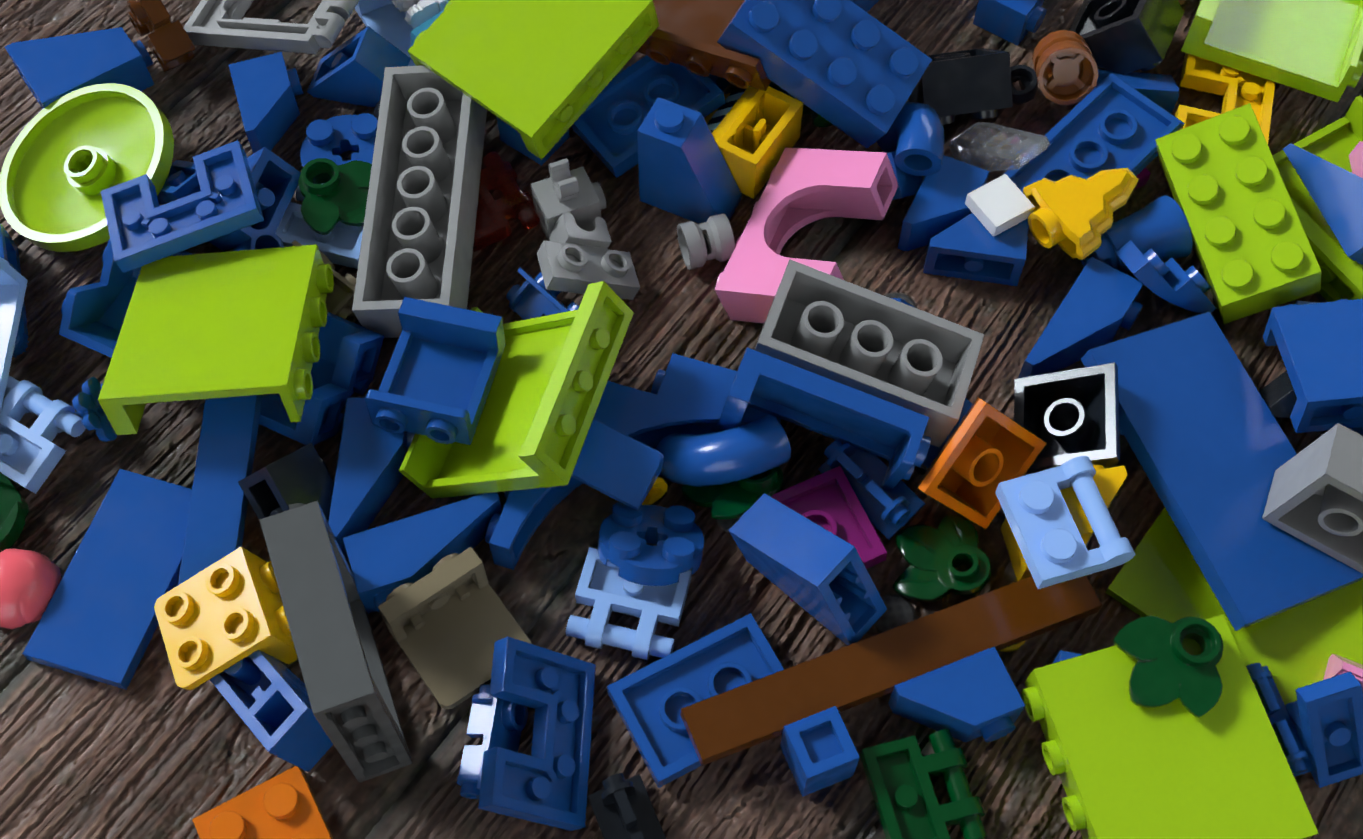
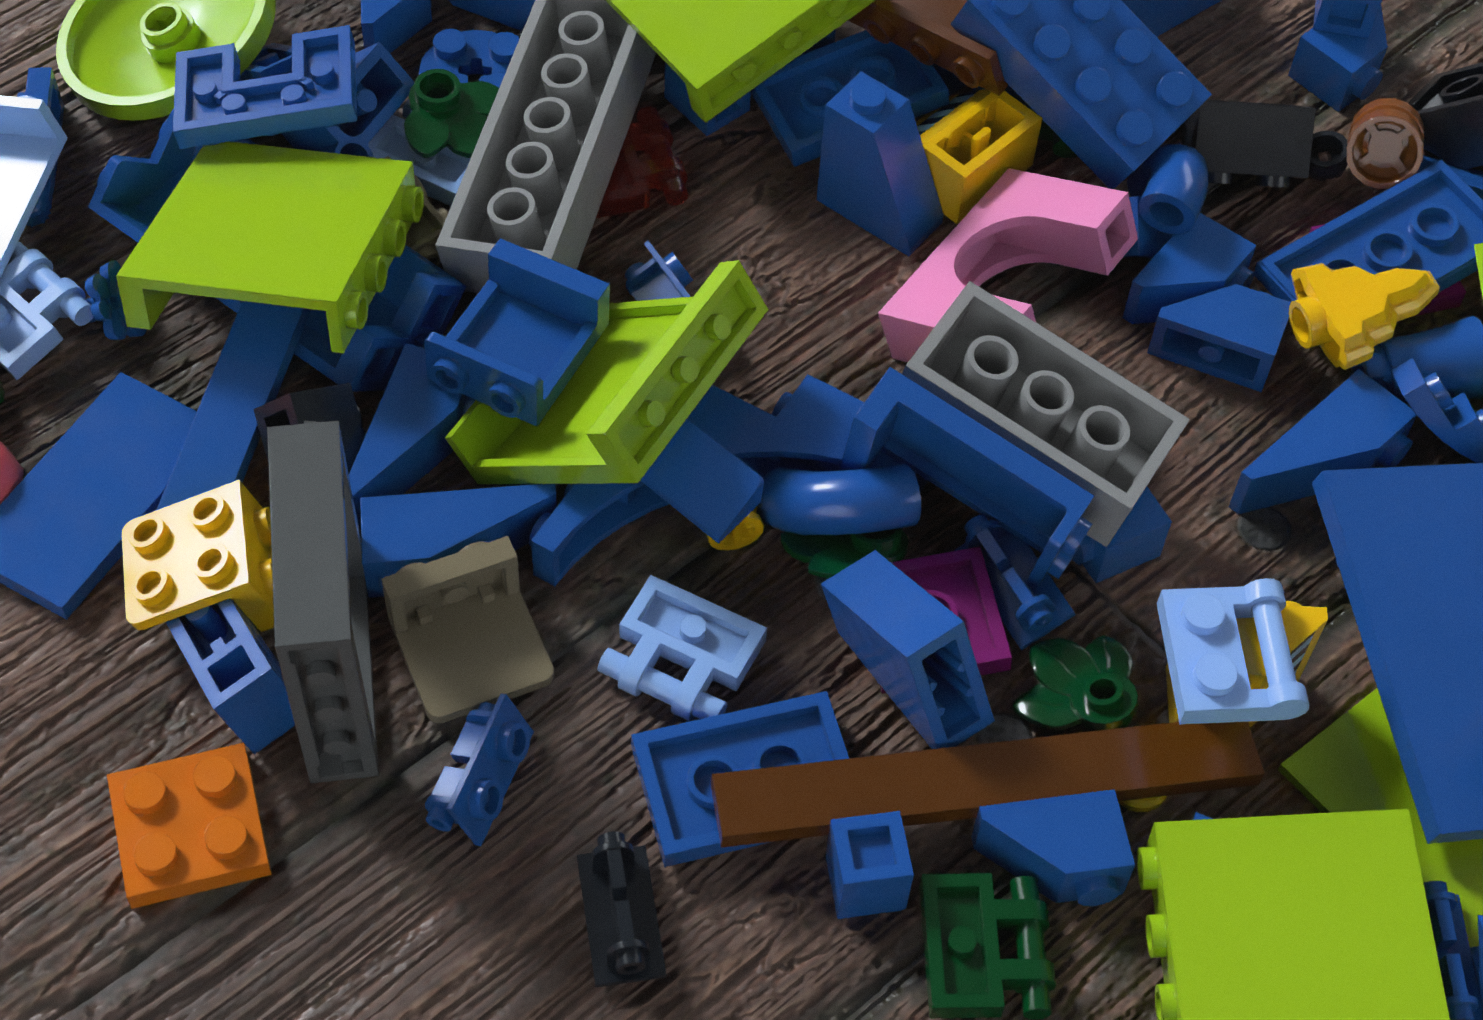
camera: 10 degrees right, 5 degrees down
(554, 780) = (542, 822): blue plate -> none
(569, 193) = (726, 181): light grey brick -> none
(582, 257) = (722, 236): light grey plate -> none
(672, 529) = (726, 584): blue plate -> none
(706, 241) = (893, 254): light grey wheel -> none
(976, 459) = (1146, 553): orange slope -> none
(997, 146) = (1274, 218): clear slope -> none
(999, 205) = (1256, 284): white tile -> none
(1071, 413) = (1276, 536): black slope -> none
(1164, 666) = (1320, 855): dark green plate -> none

